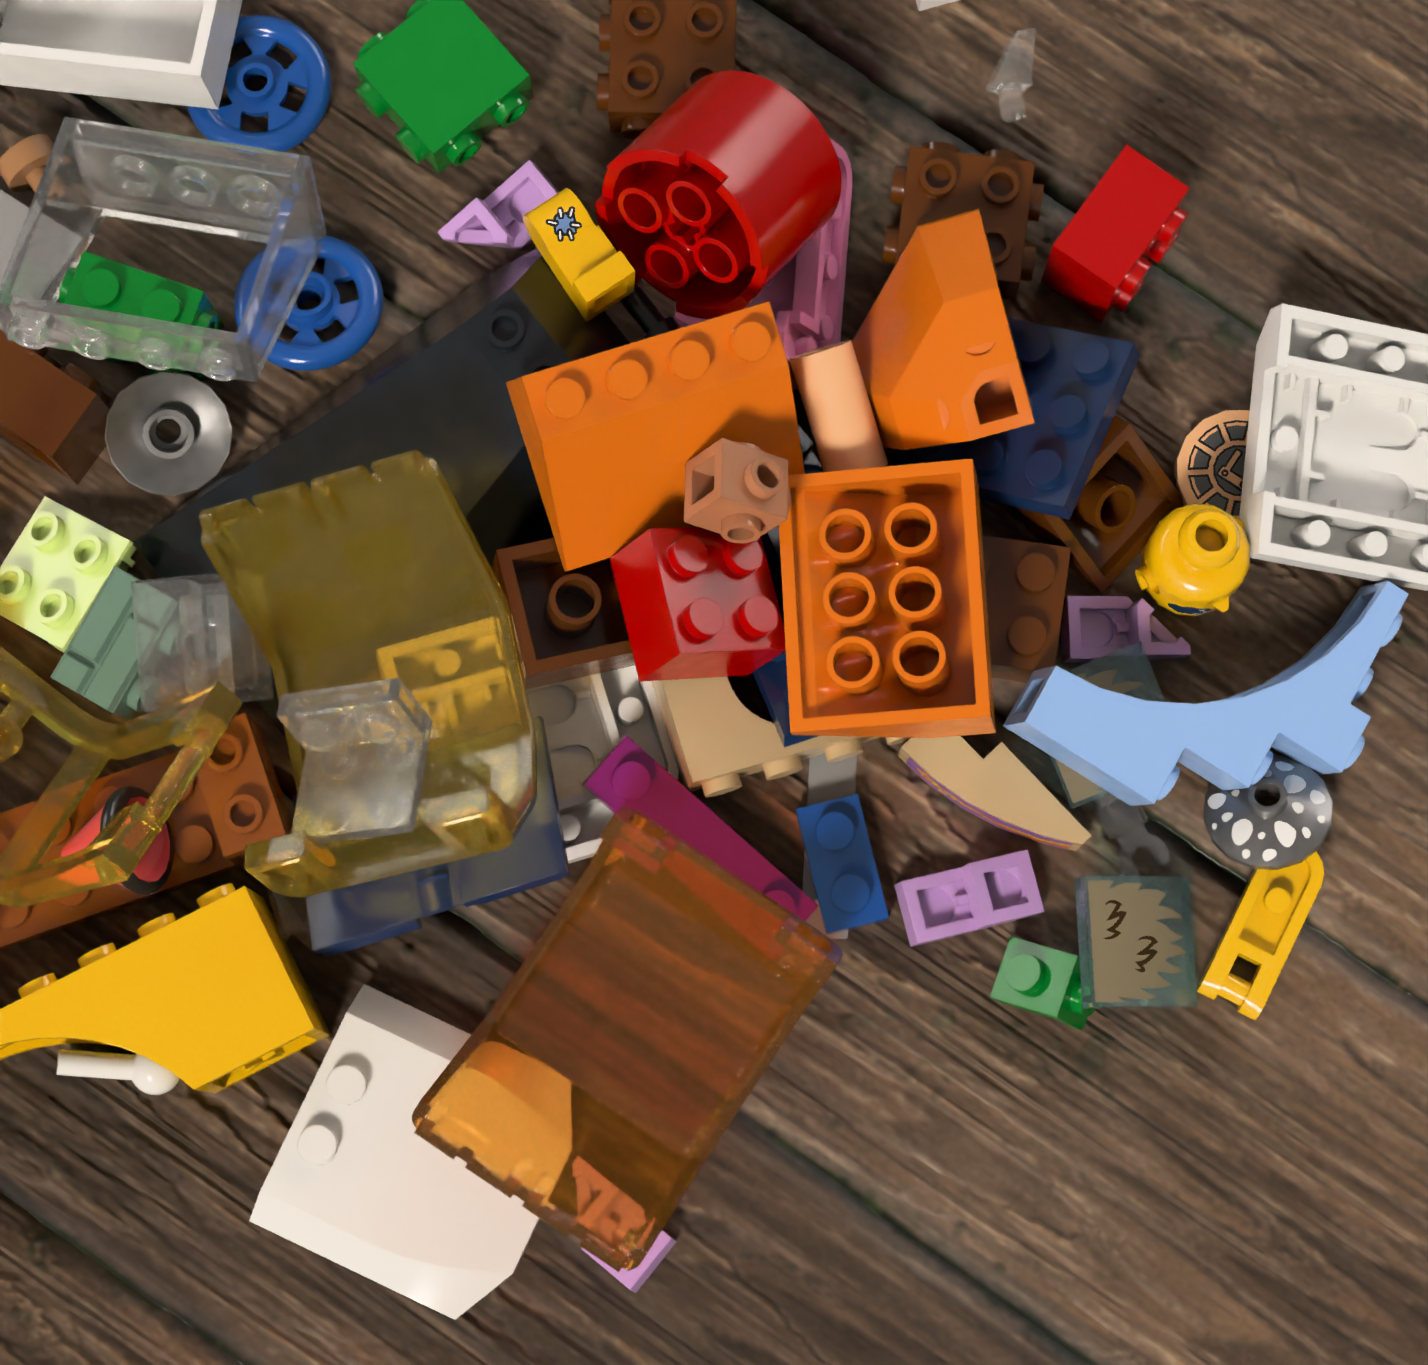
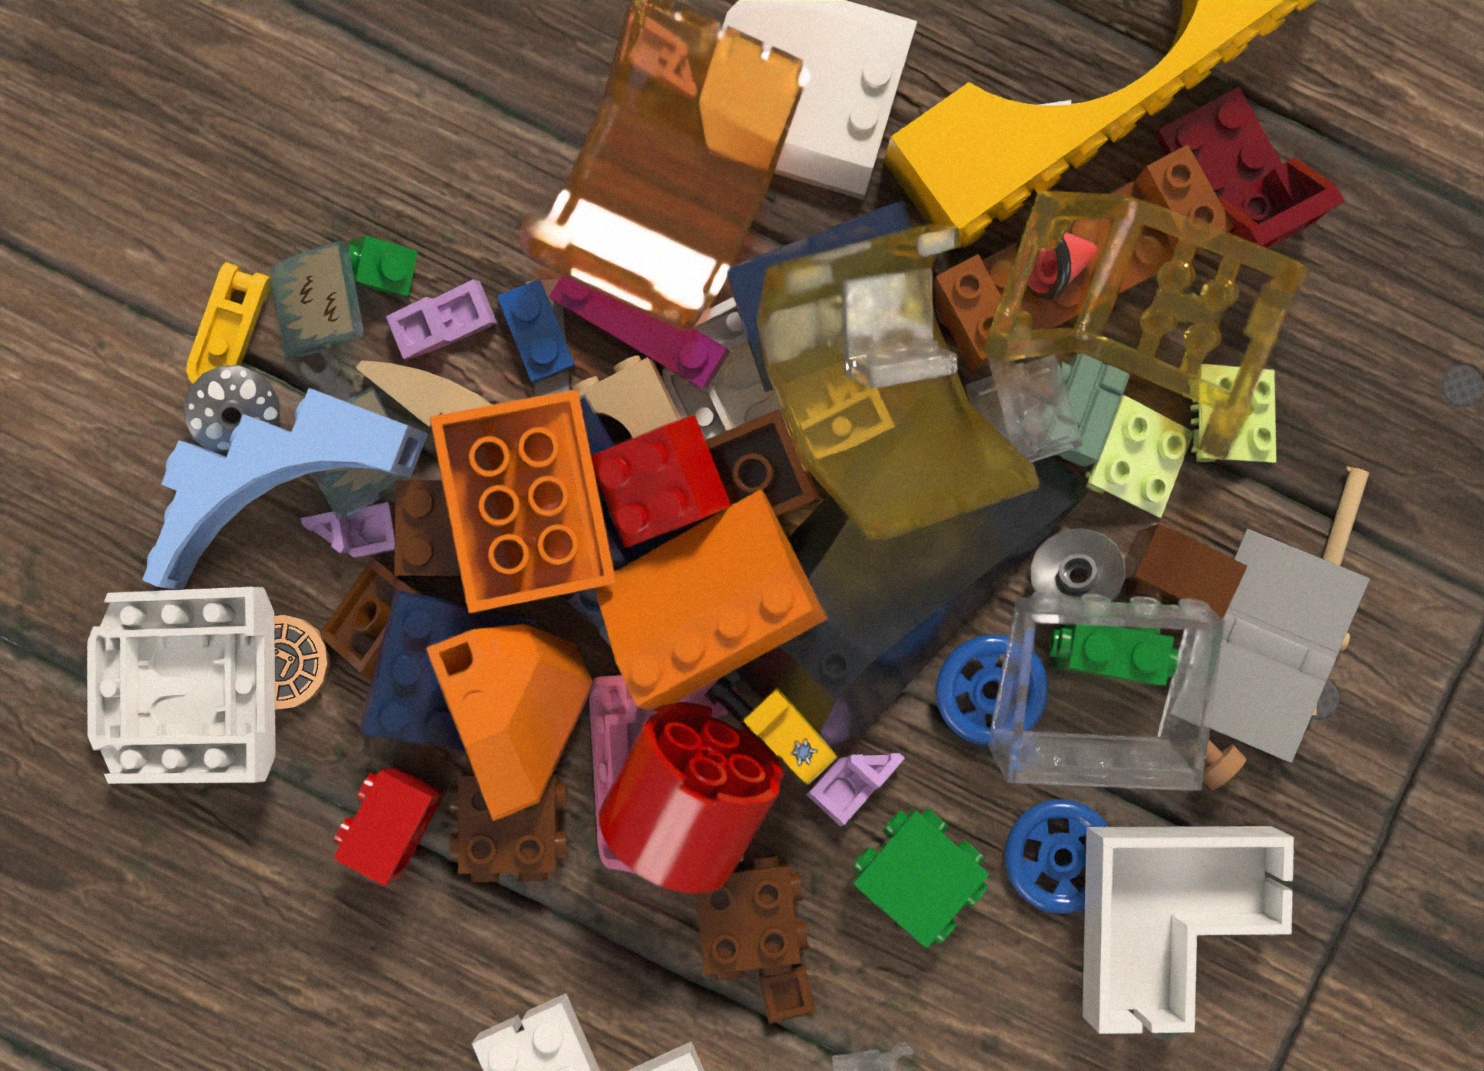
camera: 165 degrees right, 5 degrees up
(736, 491) = (641, 560): nougat brick -> none
(838, 408) = (578, 648): light nougat brick -> none
(1014, 75) = (485, 950): clear bar -> none
(1195, 560) = (302, 584): yellow piece -> none

